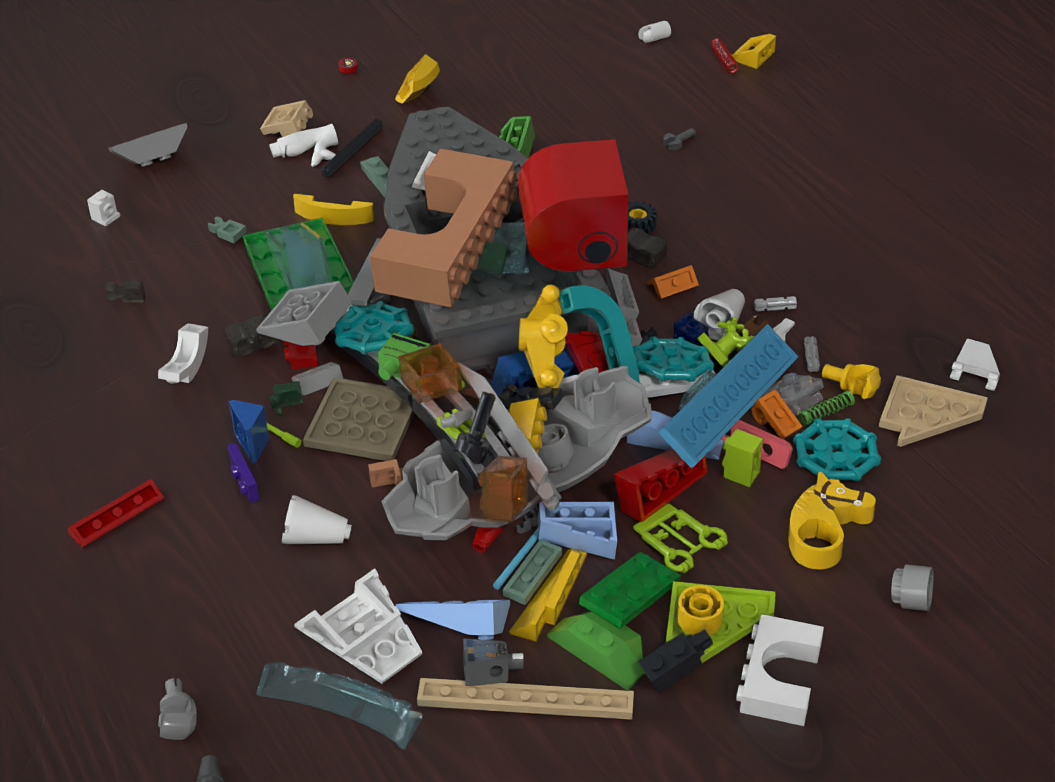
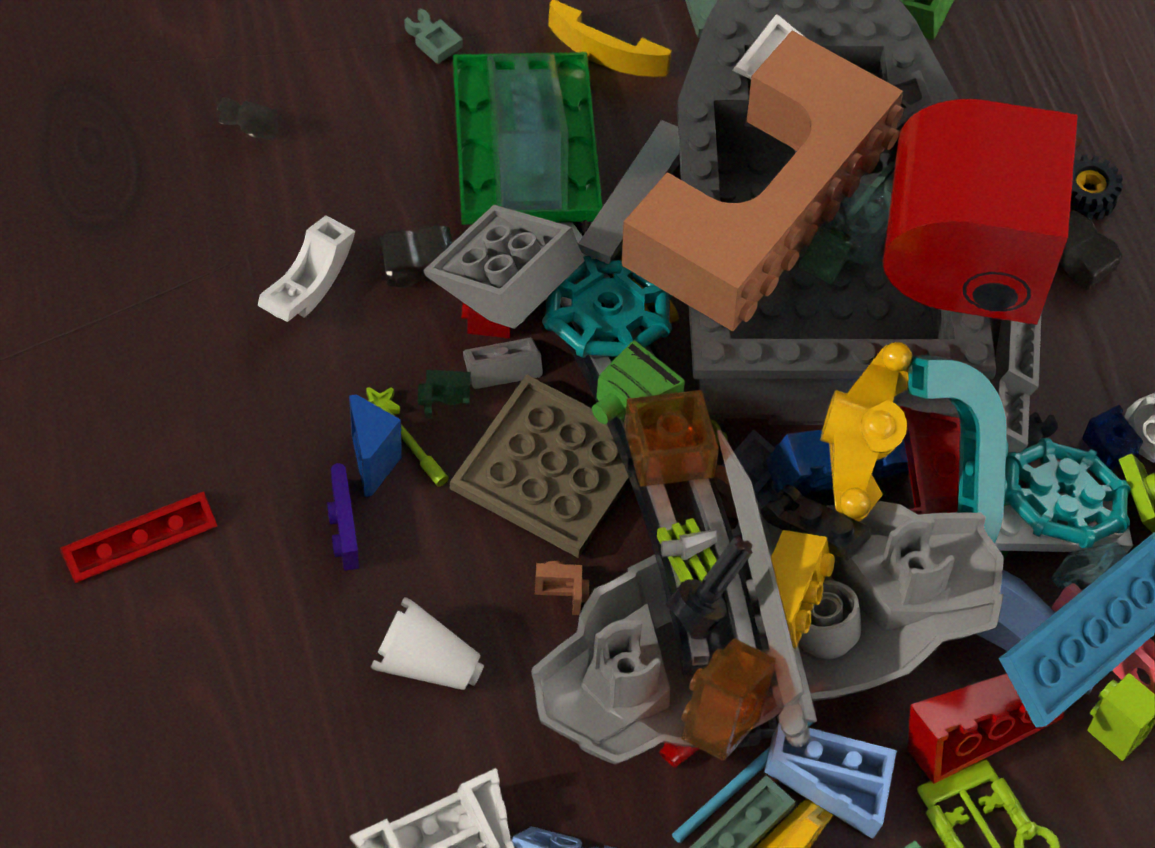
camera: 10 degrees right, 15 degrees up
(674, 282) = (1112, 329): orange panel -> none

